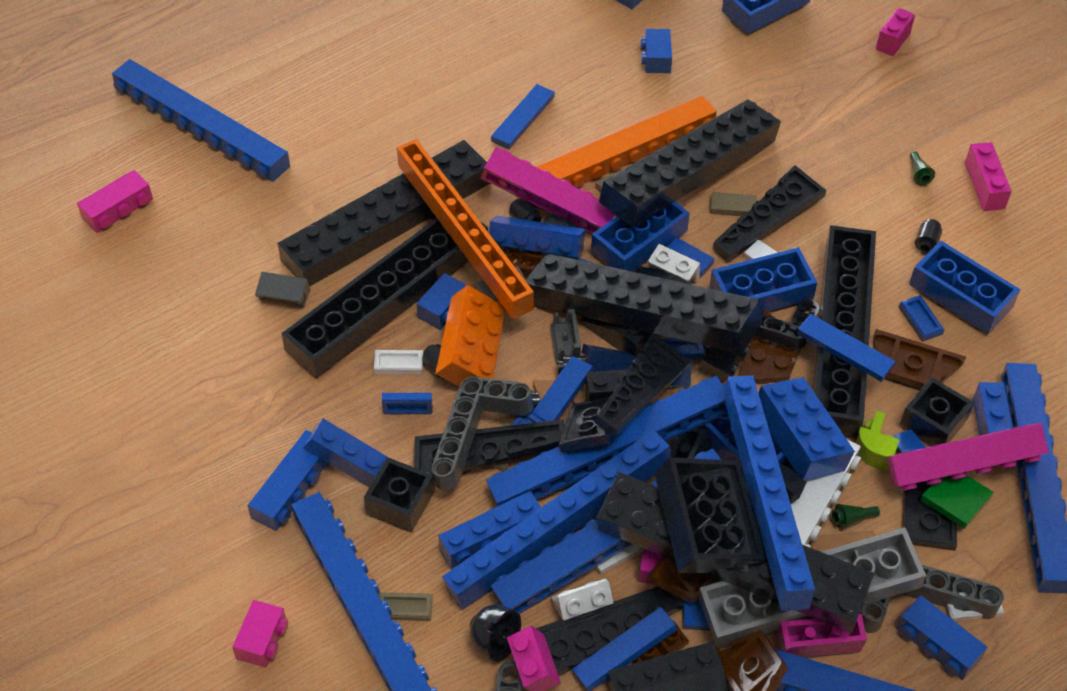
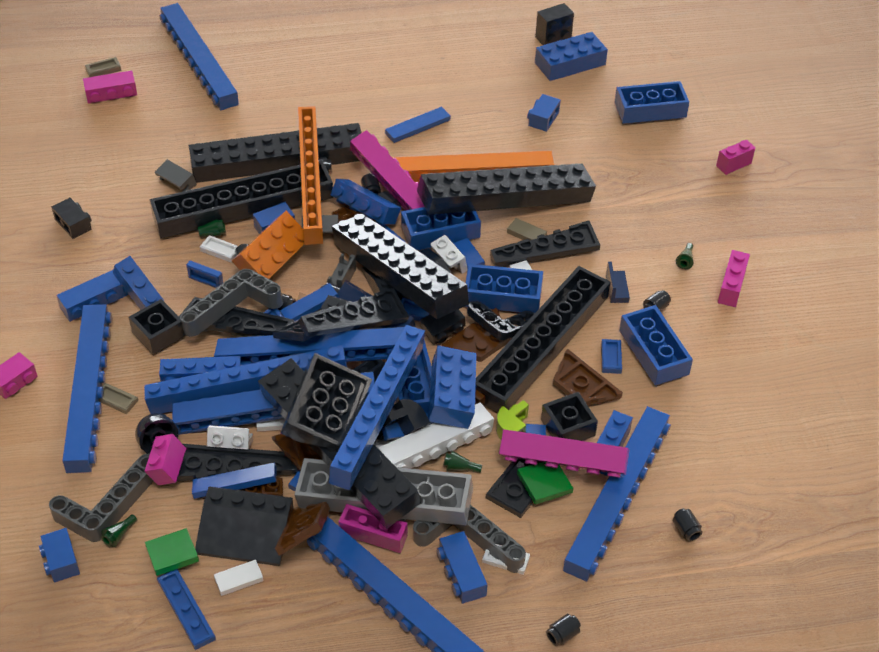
camera: 25 degrees right, 5 degrees down
(84, 178) = (103, 67): none -> dark tan tile
(188, 394) = (71, 217): none -> black brick
(374, 340) = (213, 228): none -> dark green cone
(846, 347) = (526, 348): blue tile -> none
(867, 221) = (618, 287): none -> dark blue panel

